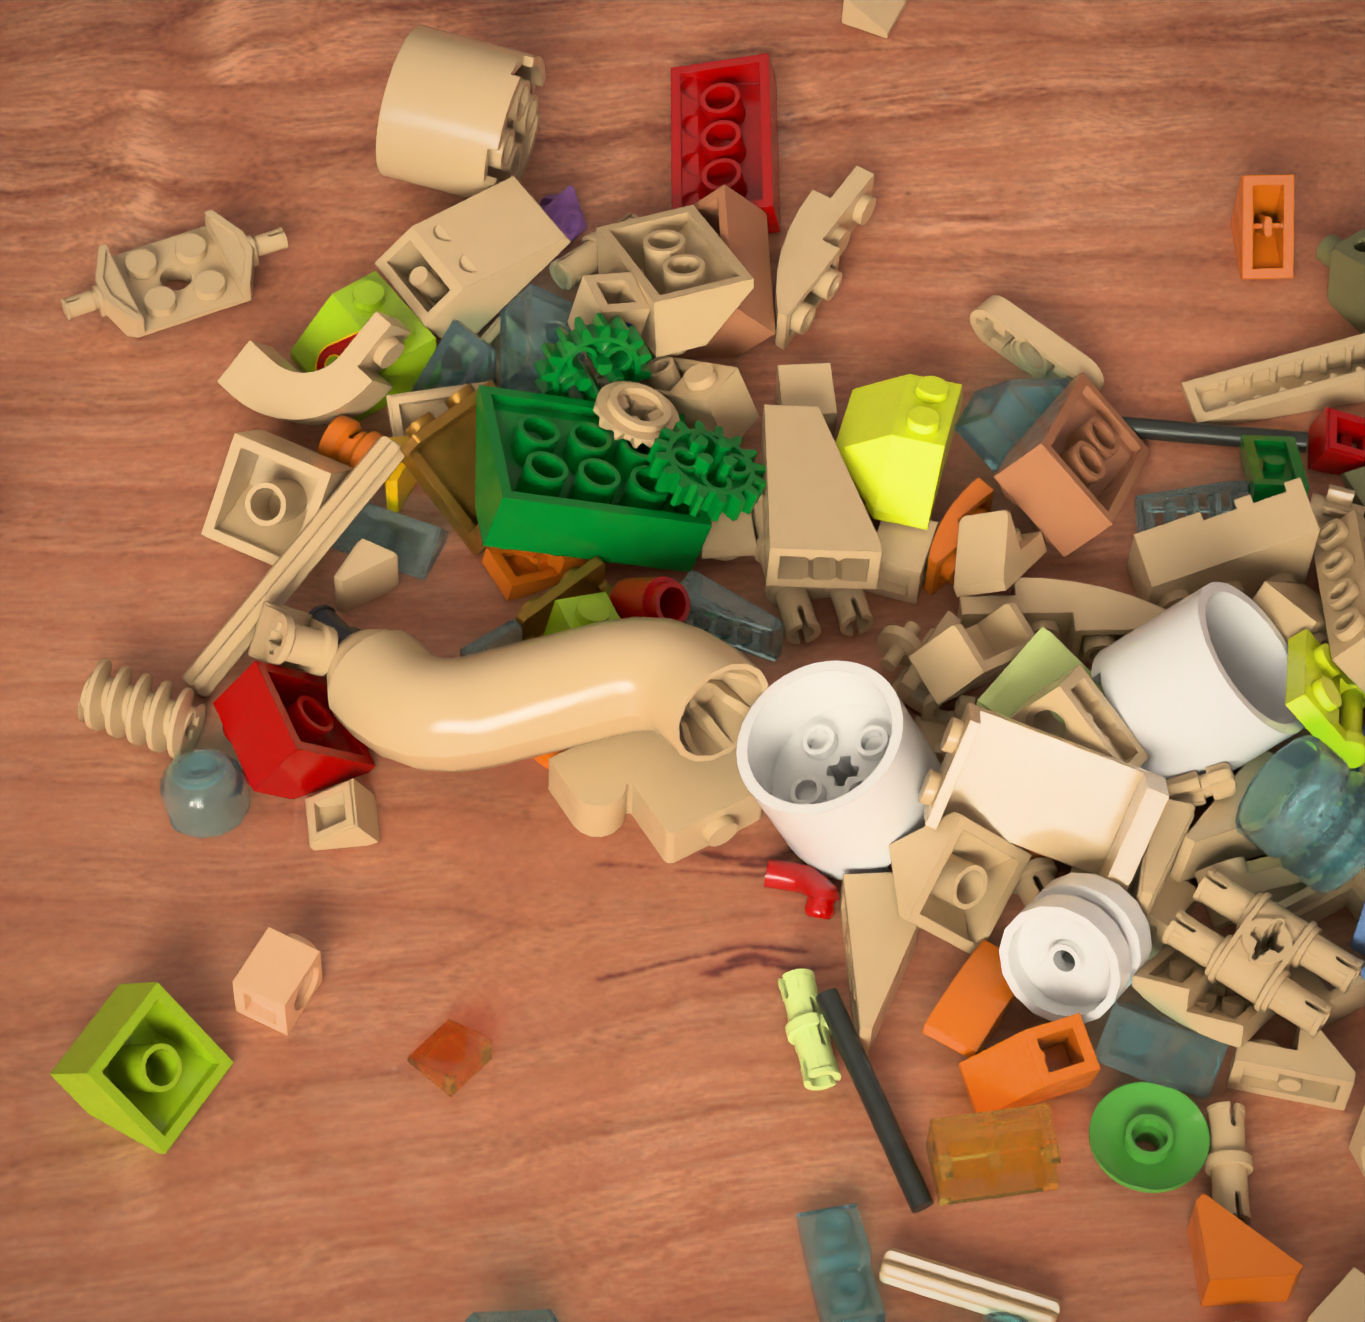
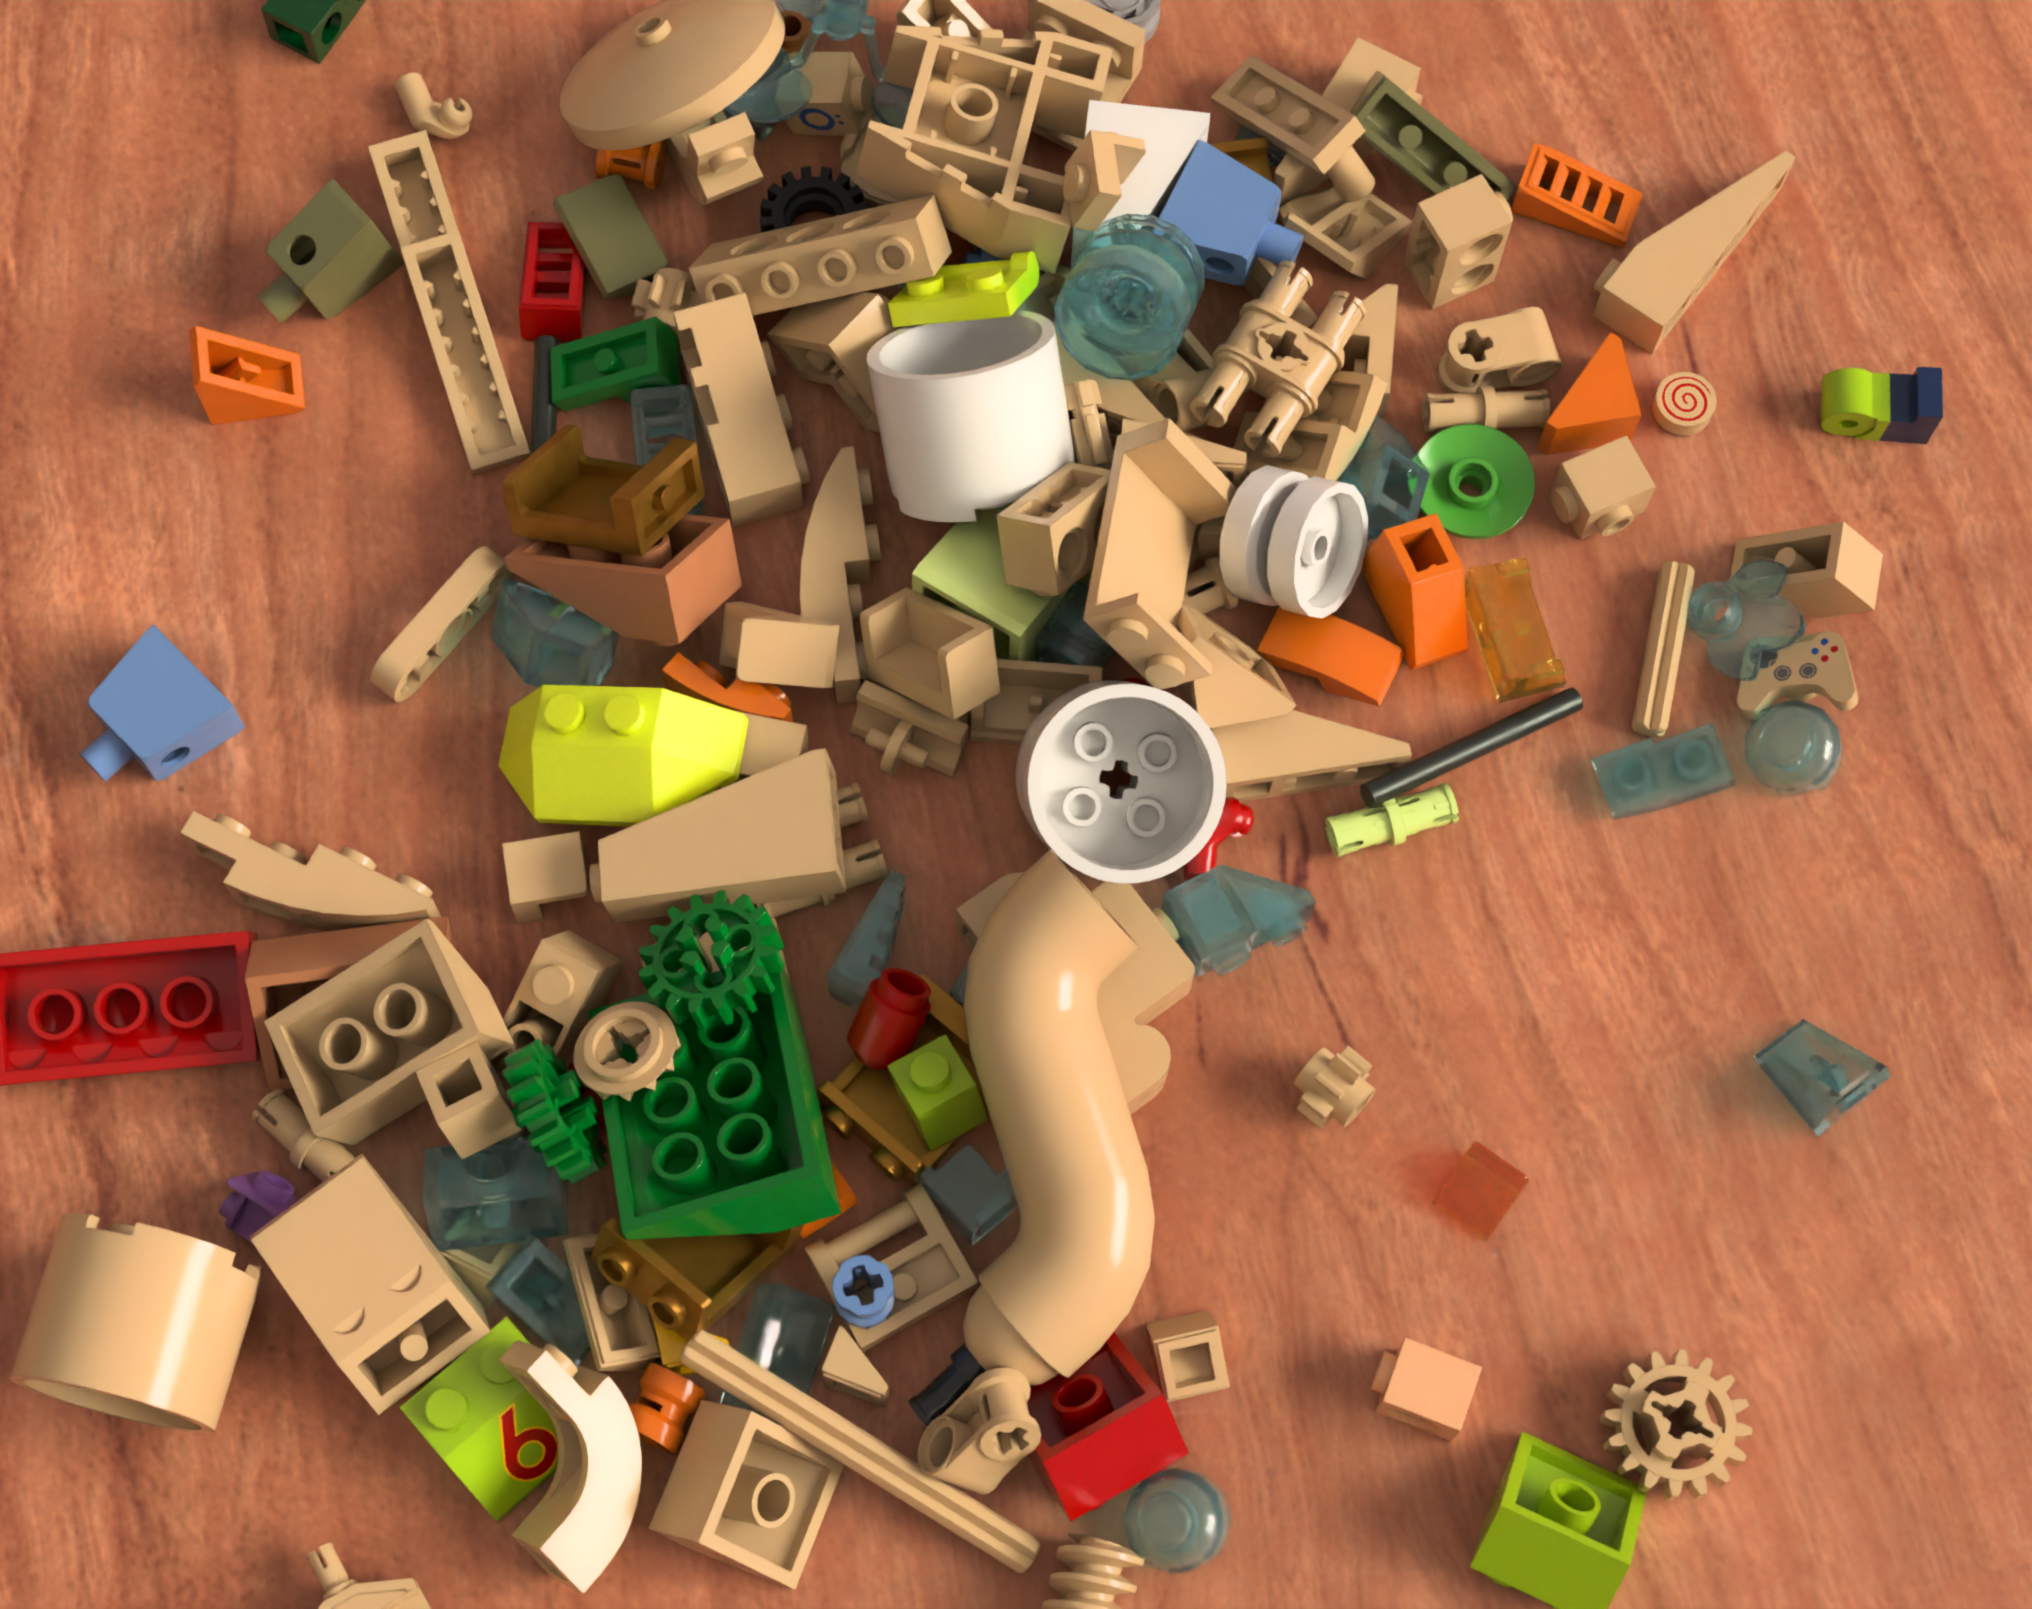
camera: 95 degrees left, 15 degrees up
(217, 1194) = (1701, 1435): none -> tan gear
(420, 572) = (877, 1277): none -> medium blue bush
(426, 610) = (924, 1273): none -> tan plate
(557, 941) = (1334, 1086): none -> tan gear
(726, 881) = (1233, 912): none -> clear light blue slope
(970, 168) = (157, 712): none -> medium blue torso
(1138, 1252) = (1602, 489): none -> tan brick
(1141, 440) = (601, 502): none -> pearl gold panel
(1291, 1181) = (1500, 353): none -> tan piece

